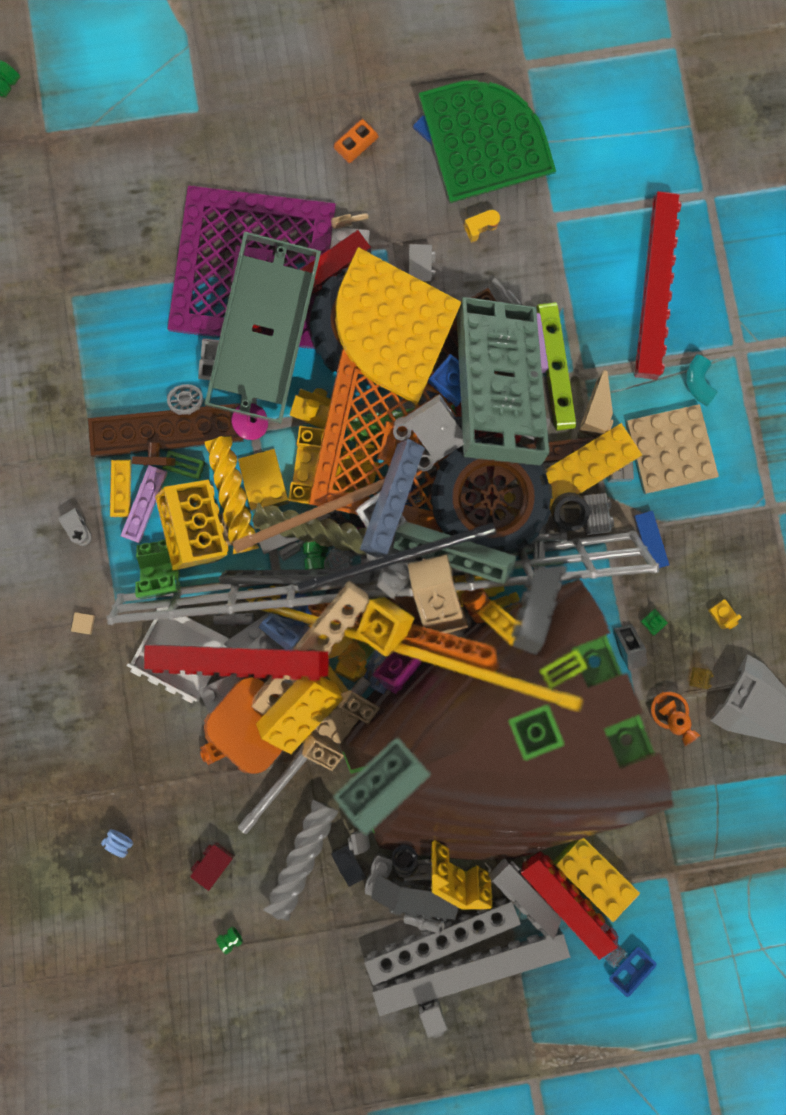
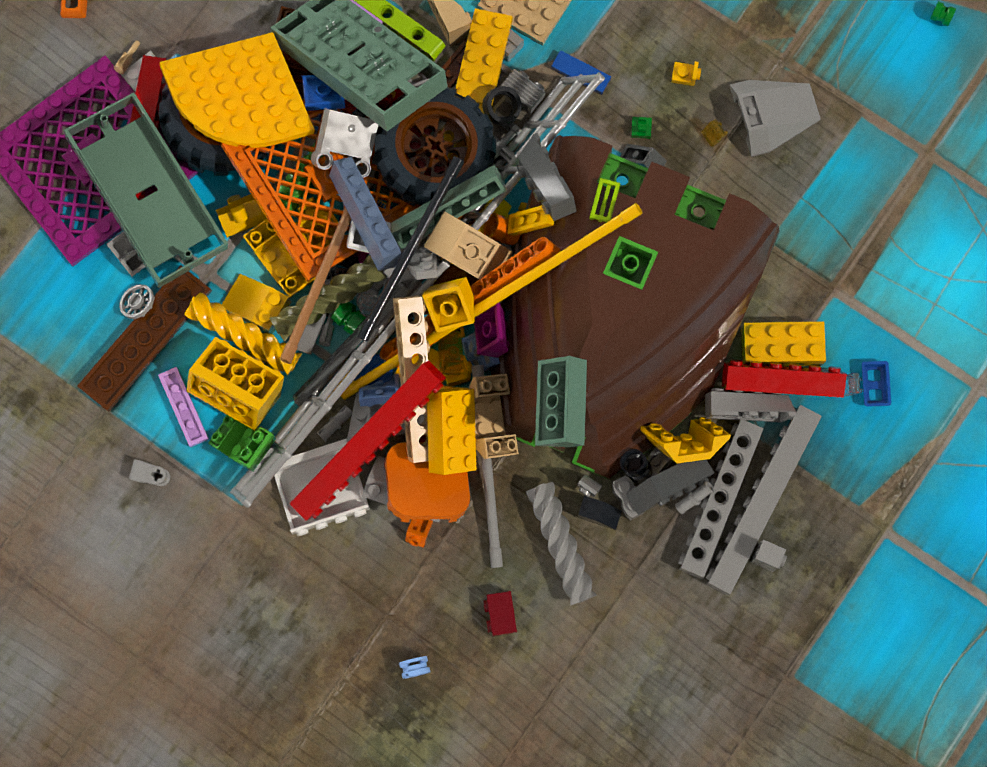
camera: 35 degrees left, 5 degrees down
(83, 623) = (225, 538): tan tile -> none
(120, 488) = (153, 413): yellow tile -> none
(153, 457) = (157, 365): reddish brown tile -> none
(198, 469) = (186, 358): bright green tile -> none
(229, 940) = (568, 653): green wheel -> none
(247, 429) = (206, 276): dark pink dish -> none
(421, 262) = (210, 34): light grey brick -> none
(674, 716) = (729, 178): orange piece -> none

